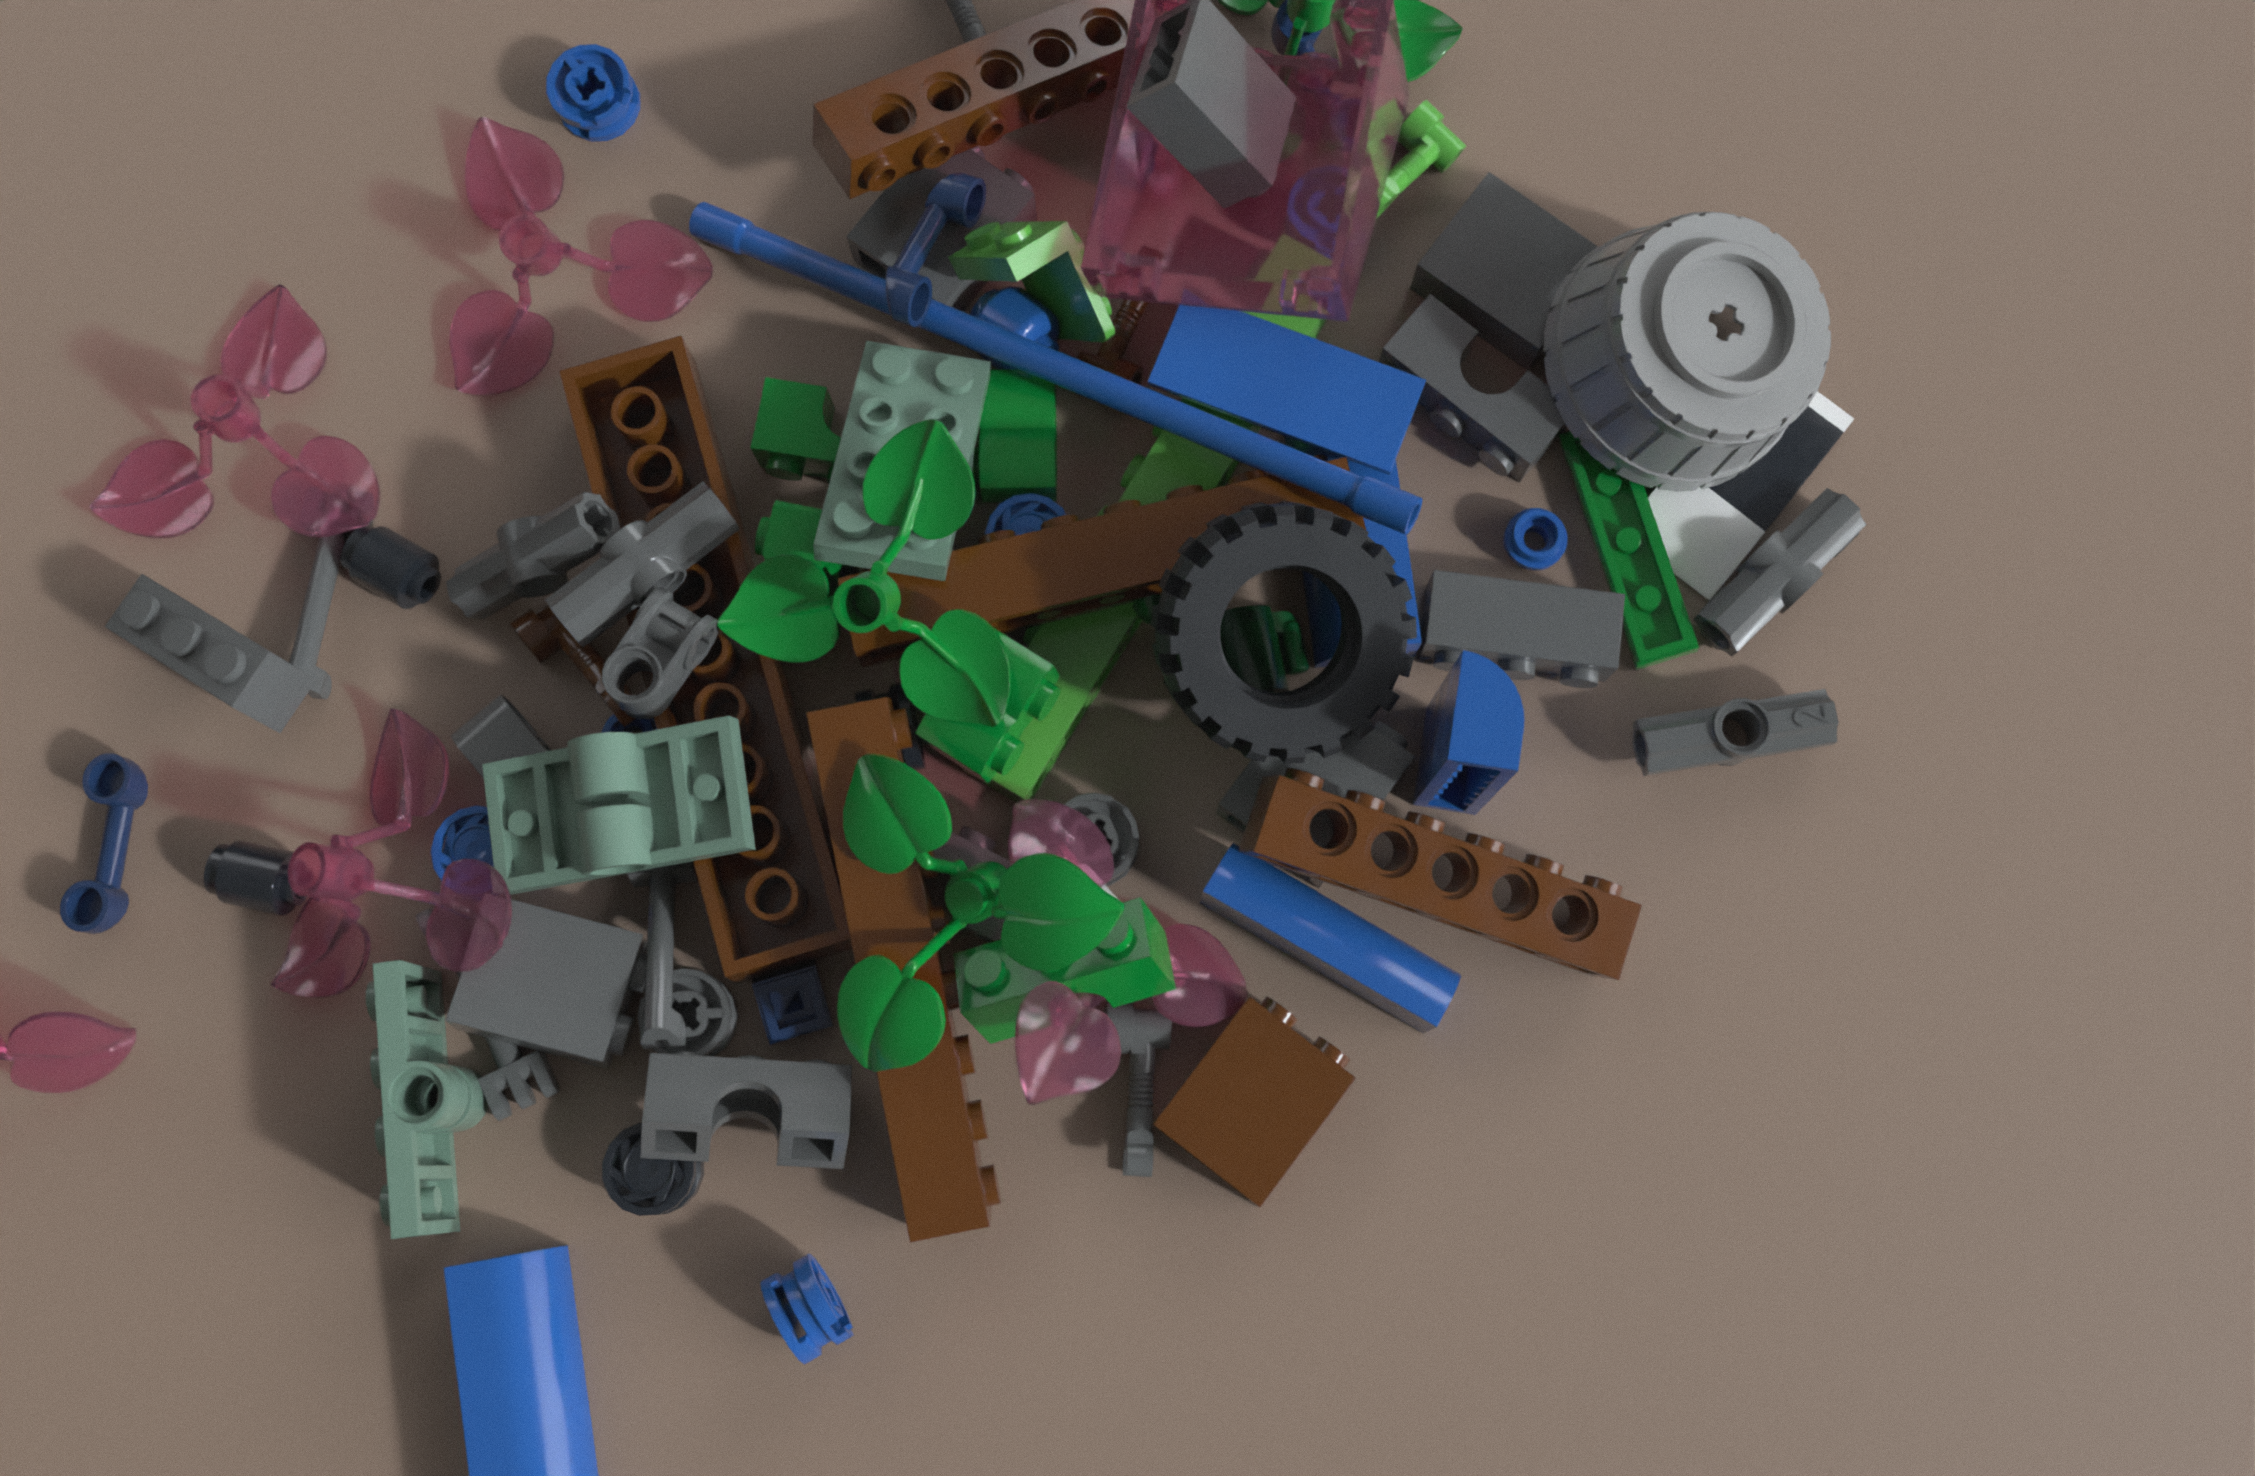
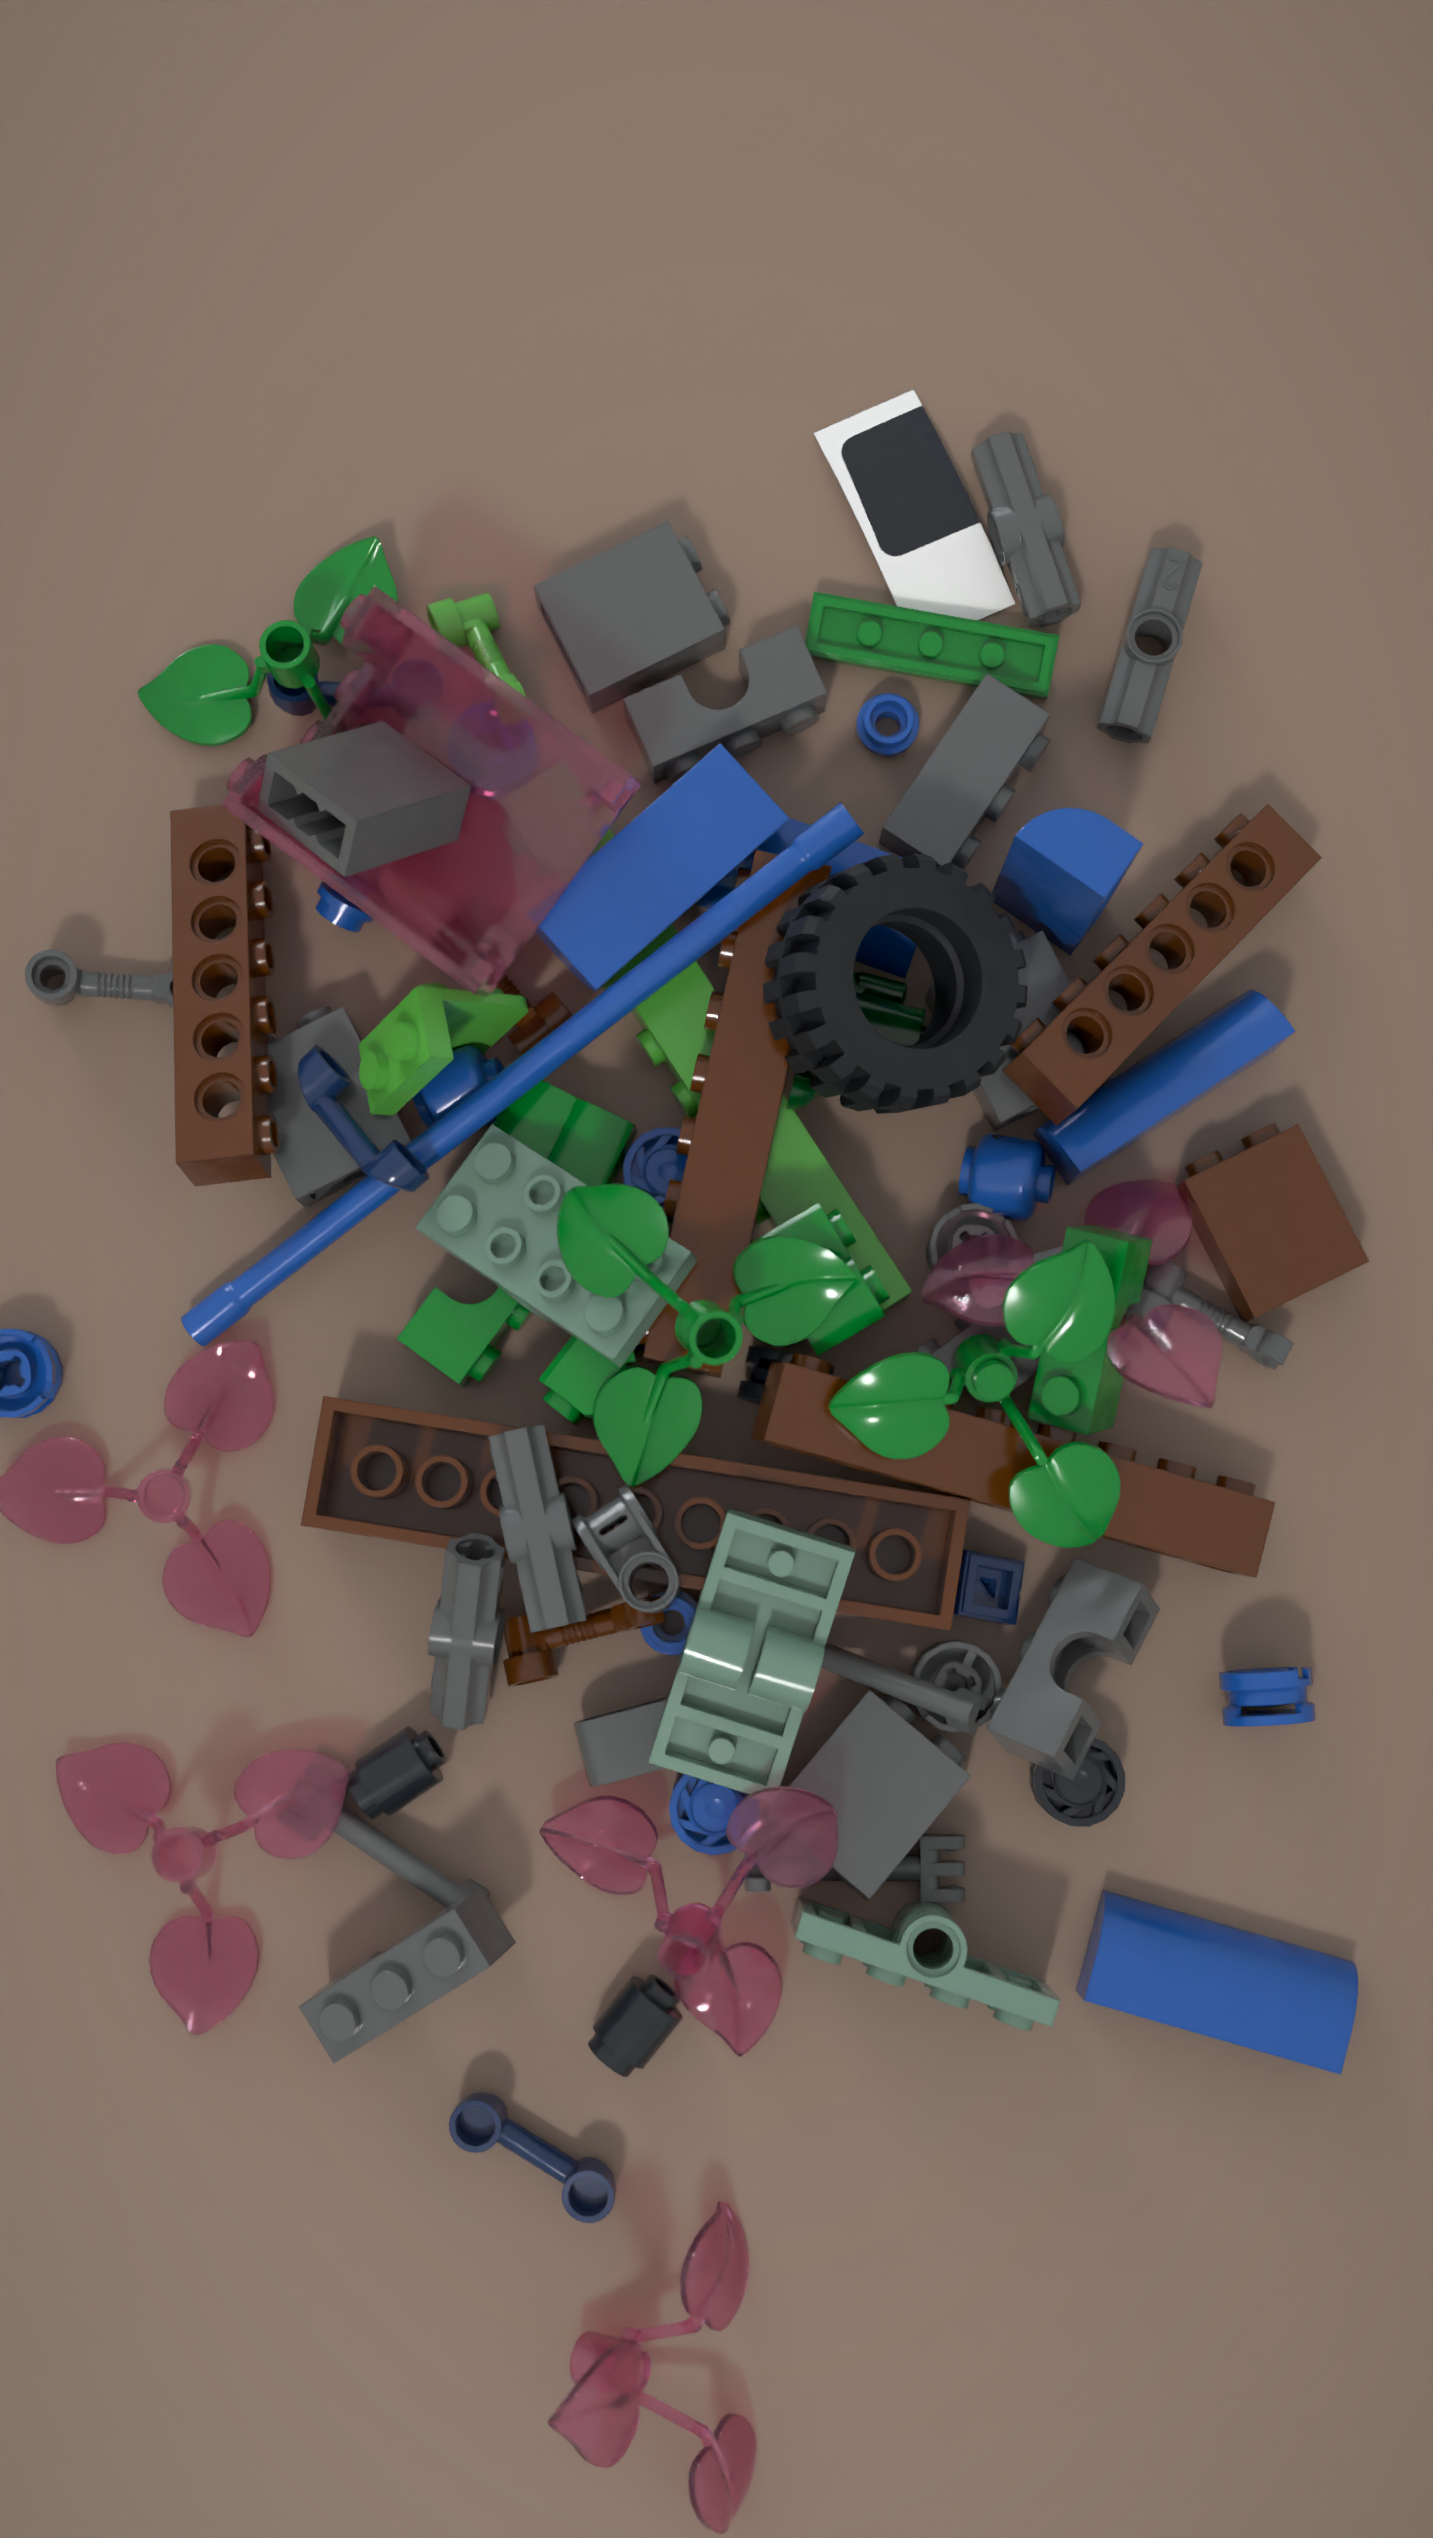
camera: 65 degrees left, 5 degrees up
(1175, 838) = (1007, 1176): none -> blue head
(1644, 365) = (784, 544): light grey piece -> none

